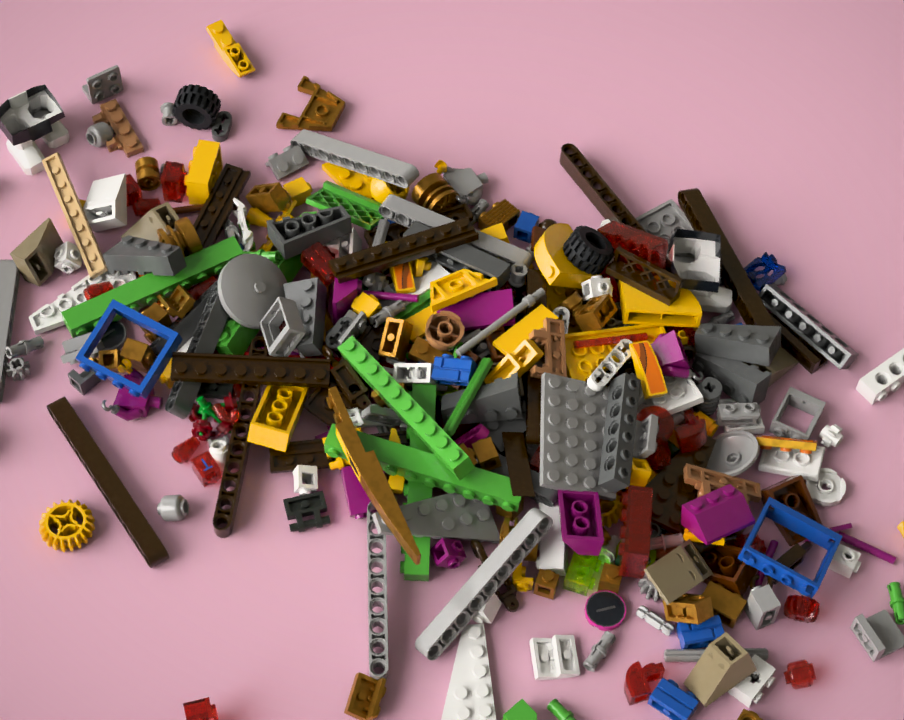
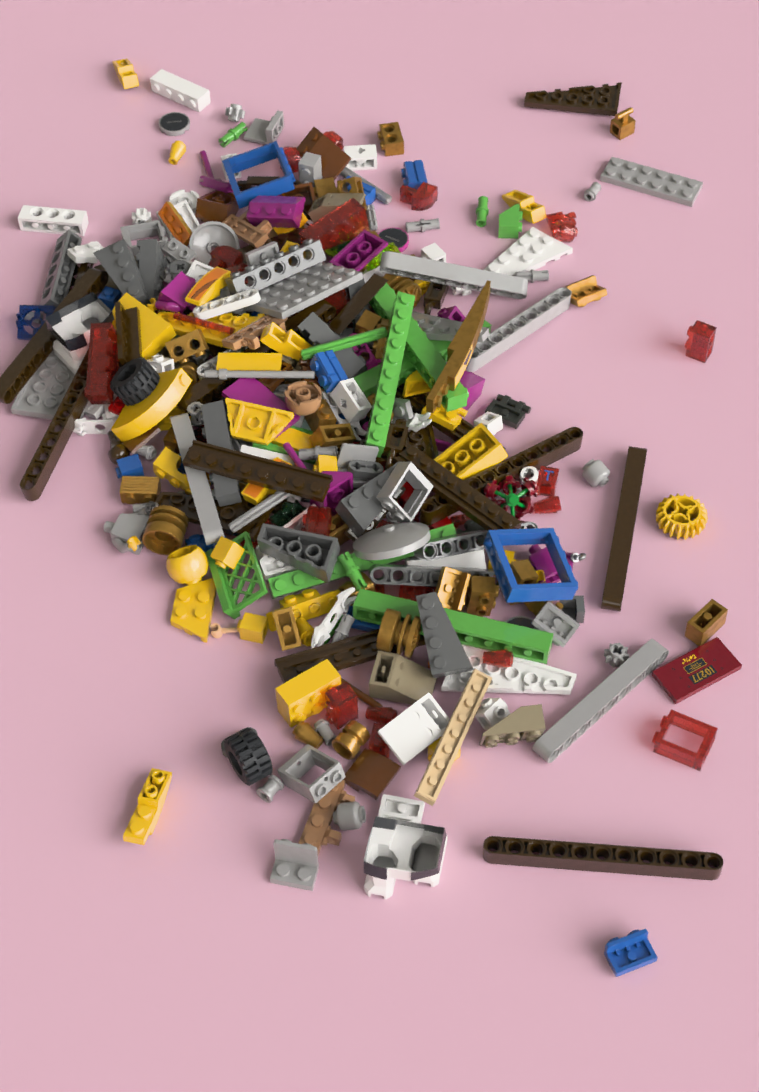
camera: 130 degrees left, 5 degrees down
(24, 347) = (597, 664): light grey pin -> none
(75, 158) = (401, 809): none -> white wing
(113, 164) = (371, 773): none -> reddish brown slope
(149, 121) = (307, 758): none -> light grey window
(182, 157) = (307, 735): none -> pearl gold cone
(231, 417) = (506, 477): clear red arm -> none
(287, 162) = (228, 664): light grey bracket -> none
(320, 112) = (149, 685): pearl gold wing -> none
(320, 179) = (217, 631): none -> light nougat hand
(356, 158) = (190, 595): light grey beam -> none
(365, 204) = (227, 553): none -> yellow brick
(436, 677) = (534, 275): none -> light grey axle
(544, 616) = (433, 252): none -> white brick
(554, 657) = (452, 240): white slope -> none
(719, 669) = (376, 162): dark tan slope -> none
(782, 640) = (332, 157): none -> reddish brown slope
(804, 351) = (84, 252): none -> white wing

